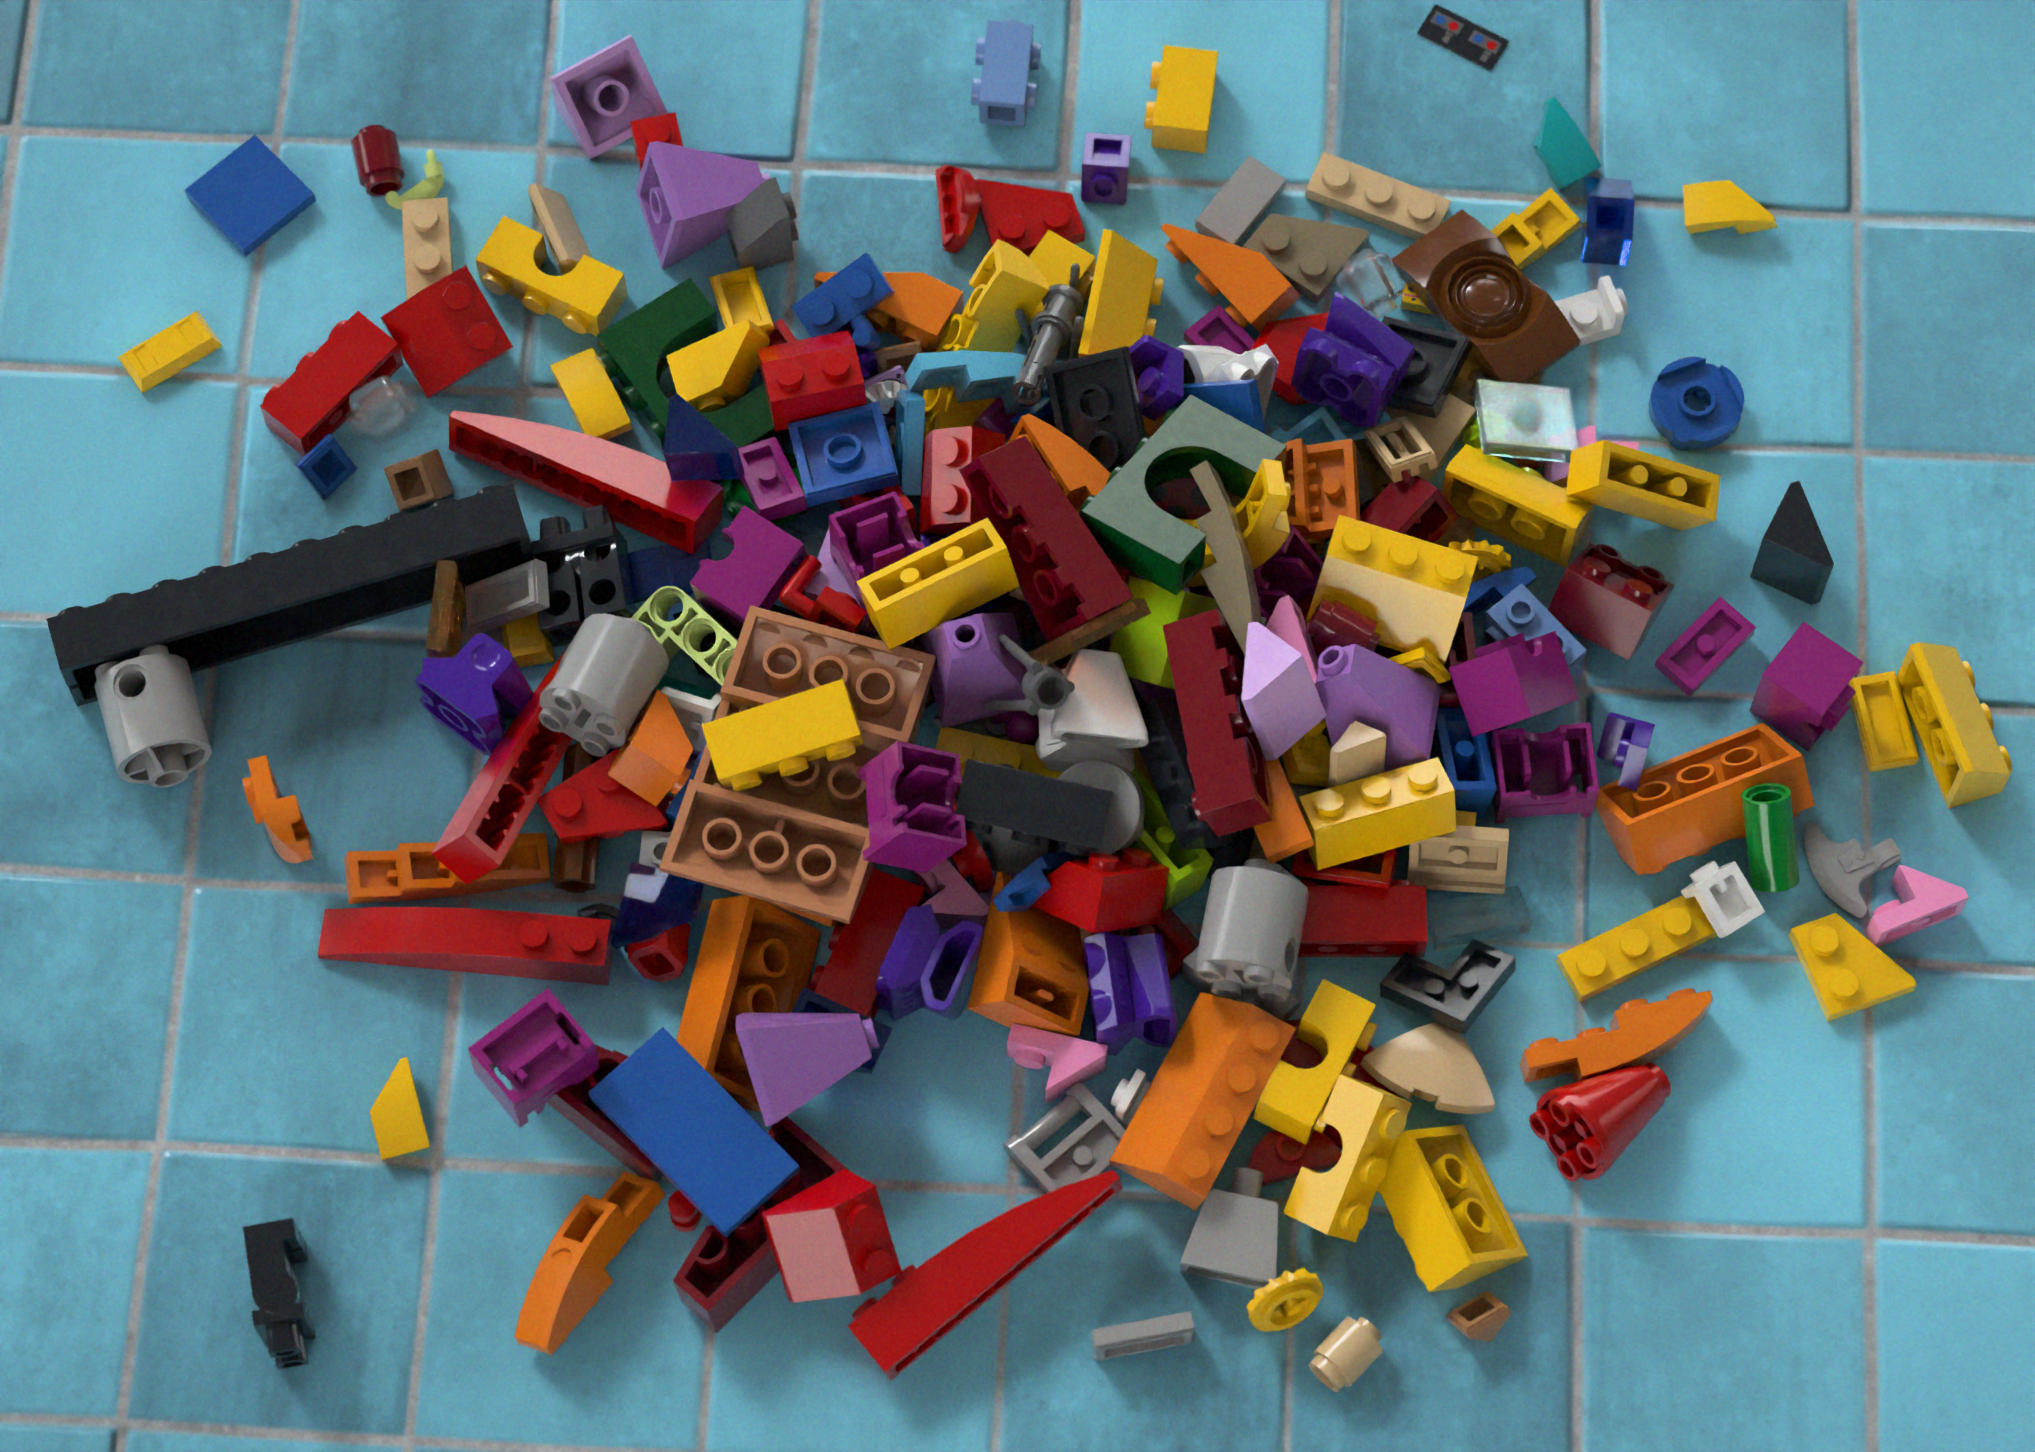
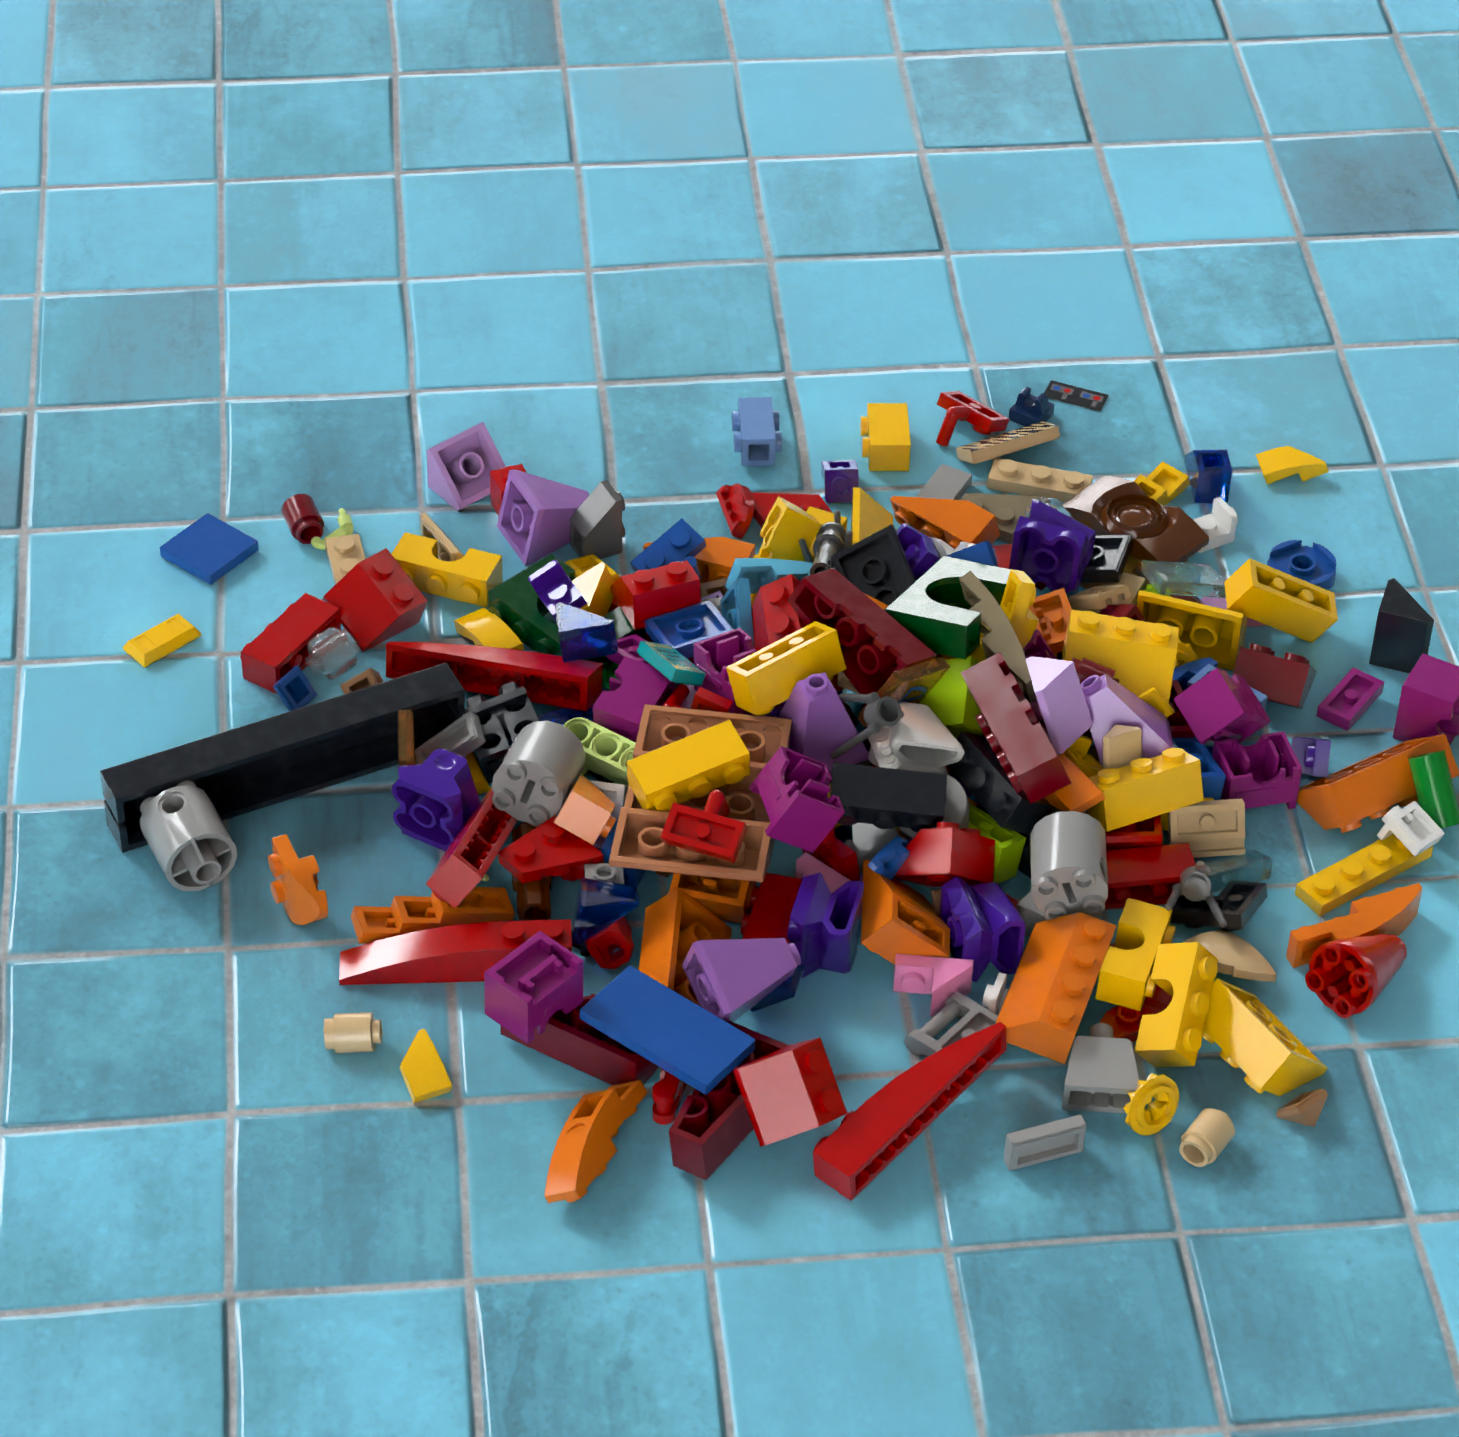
camera: 10 degrees left, 25 degrees down
(283, 1312) = (349, 1178): black hips -> none
(319, 1048) = (352, 1032): none -> tan brick
(682, 358) = (555, 586): none -> dark purple bracket
(783, 847) = (705, 830): none -> red plate
(800, 529) = (671, 663): none -> teal tile
(1308, 63) = (965, 408): none -> red plate
(1347, 125) = (1008, 442): none -> tan tile
(1393, 65) = (1030, 408): none -> dark blue tile
(1417, 966) = (1196, 886): none -> dark grey plant
(1563, 146) = (1164, 441): teal slope -> none

